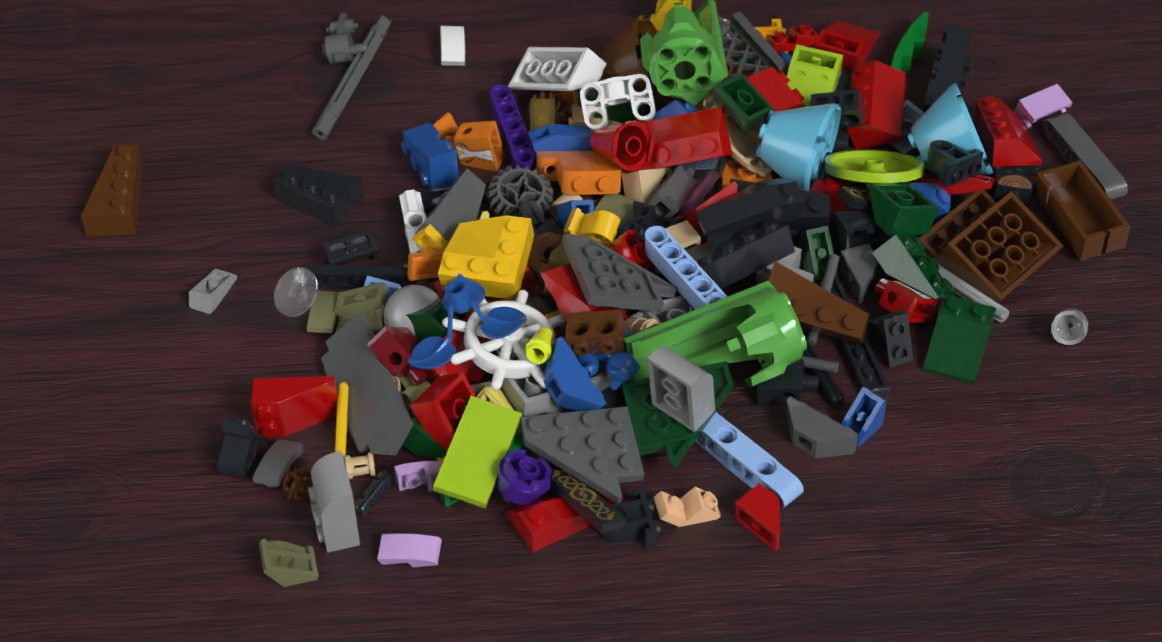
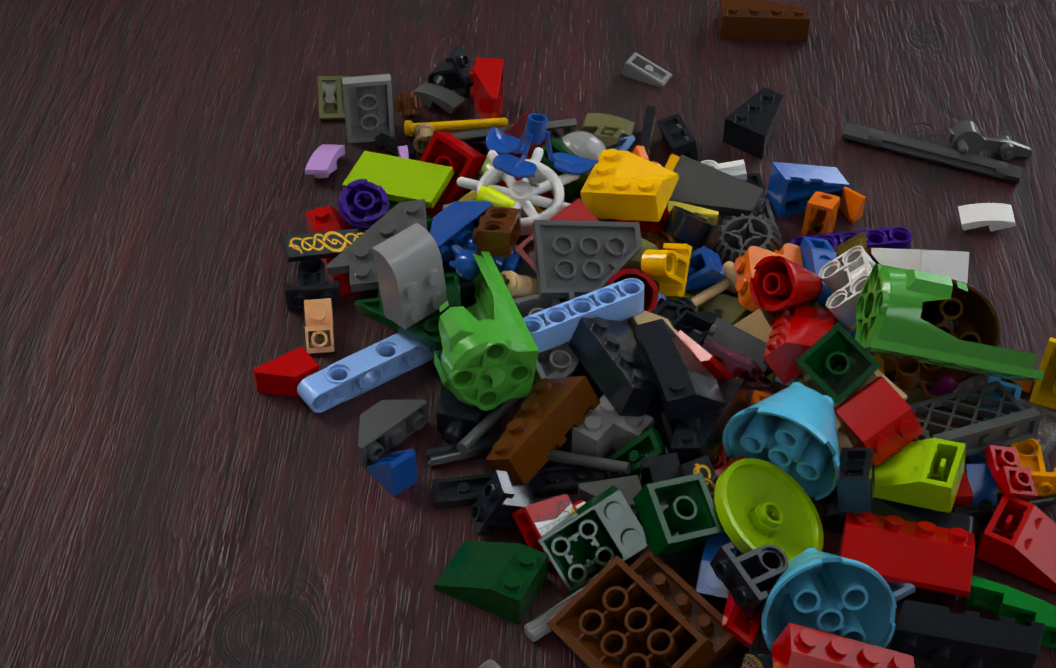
camera: 95 degrees right, 5 degrees down
(296, 292) = (631, 110): clear dish -> none

